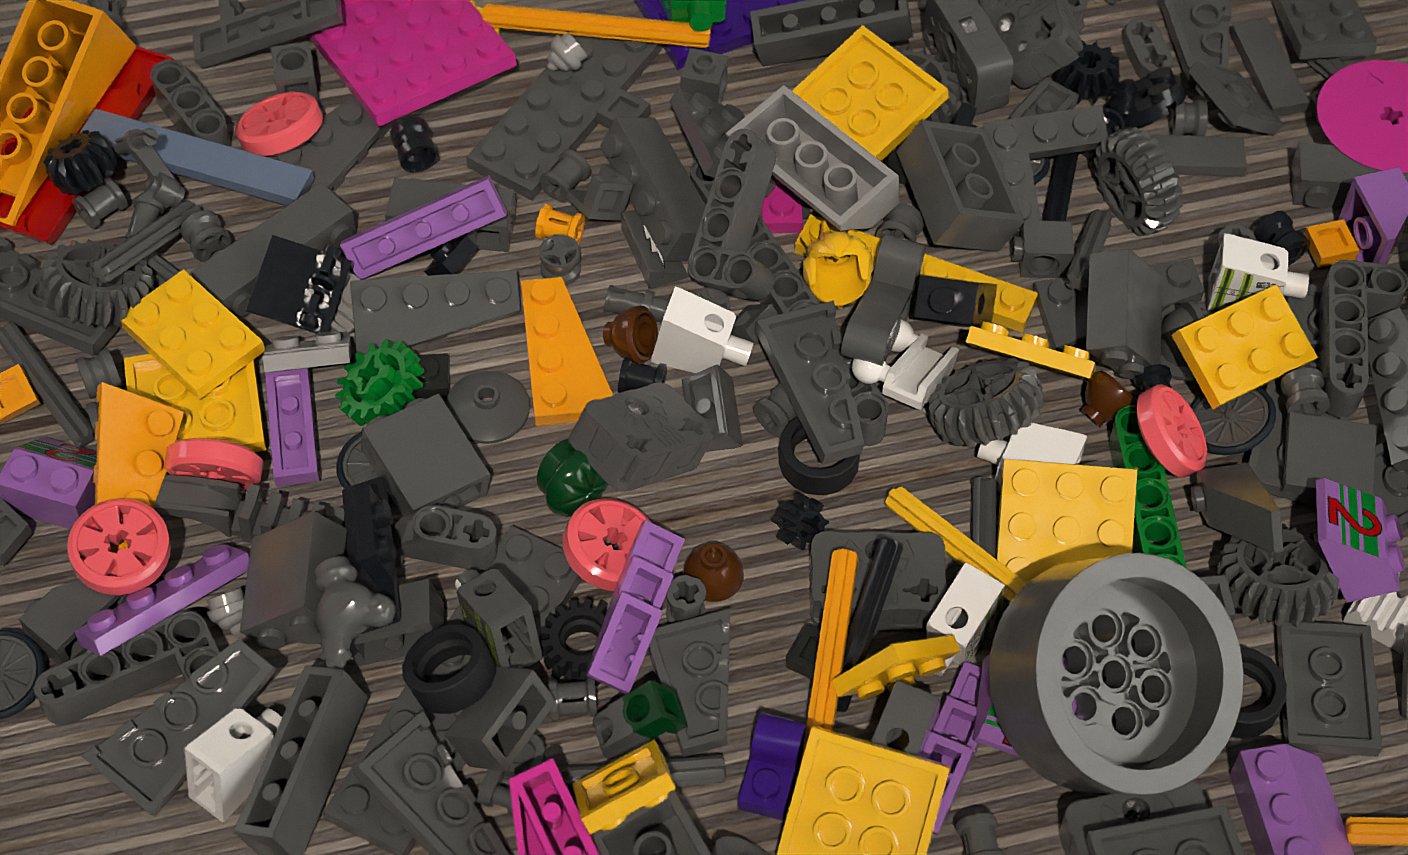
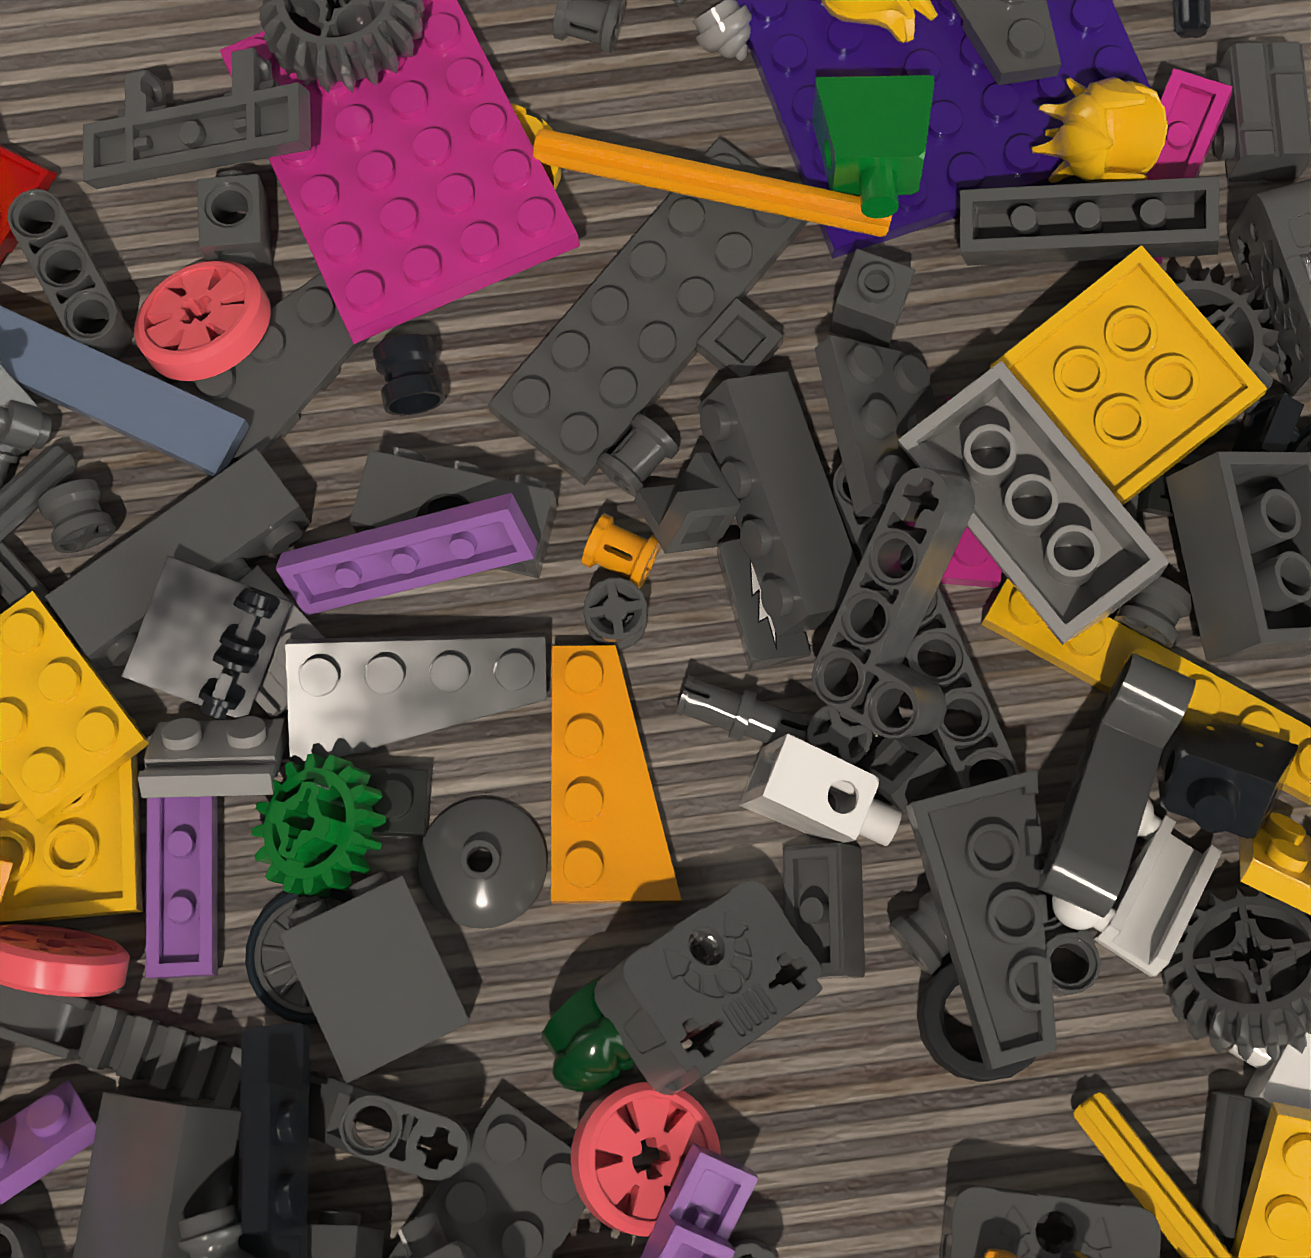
camera: 10 degrees right, 20 degrees up
(227, 610) = (59, 1199): light grey plate -> none
(450, 256) = (446, 603): black plate -> none
(565, 53) = (659, 235): light grey plate -> none
(632, 334) = (714, 769): reddish brown brick -> none
(638, 375) = (721, 850): black bush -> none
(717, 569) = (796, 1208): reddish brown brick -> none
(799, 520) = (939, 1146): black gear -> none
(837, 266) = (1048, 692): yellow hair -> none

